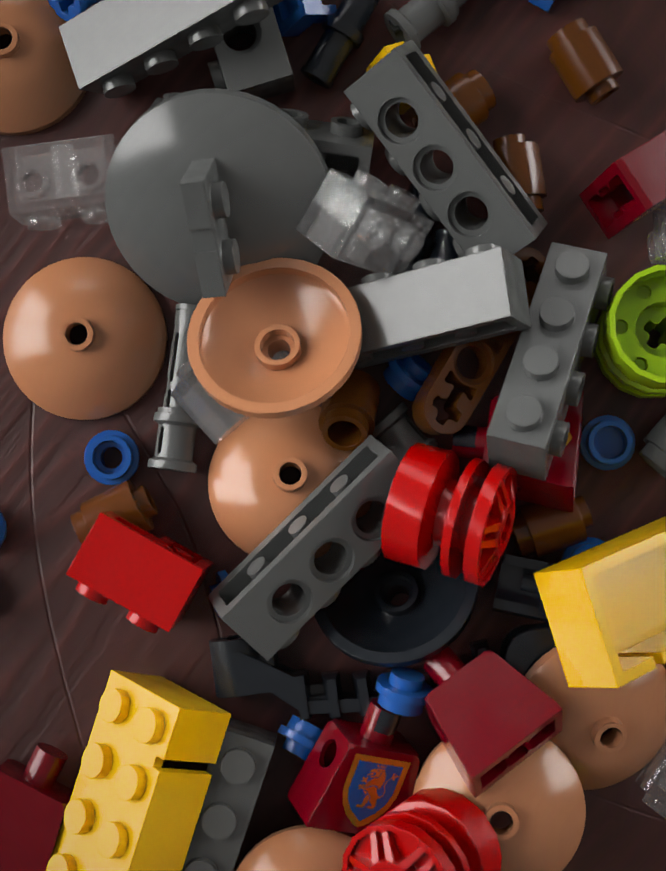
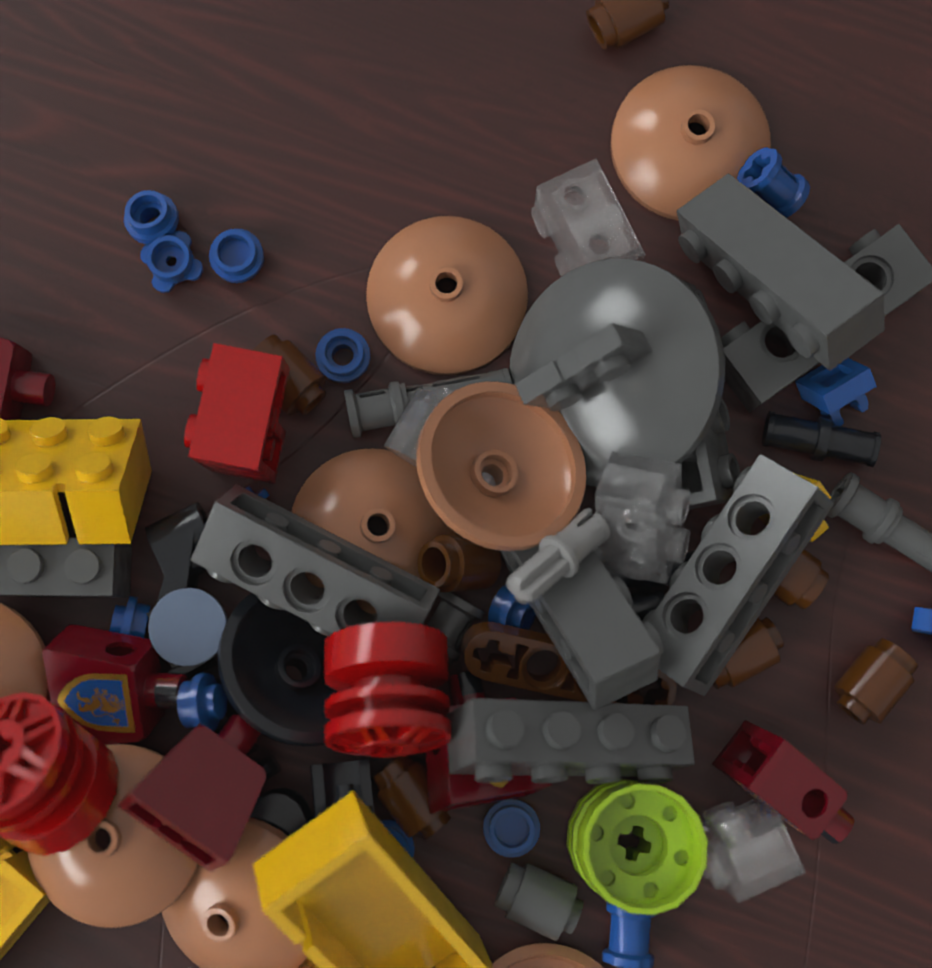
camera: 70 degrees right, 5 degrees down
(327, 684) = (187, 626): none -> sand blue piece
(379, 312) = (558, 556): none -> light grey axle

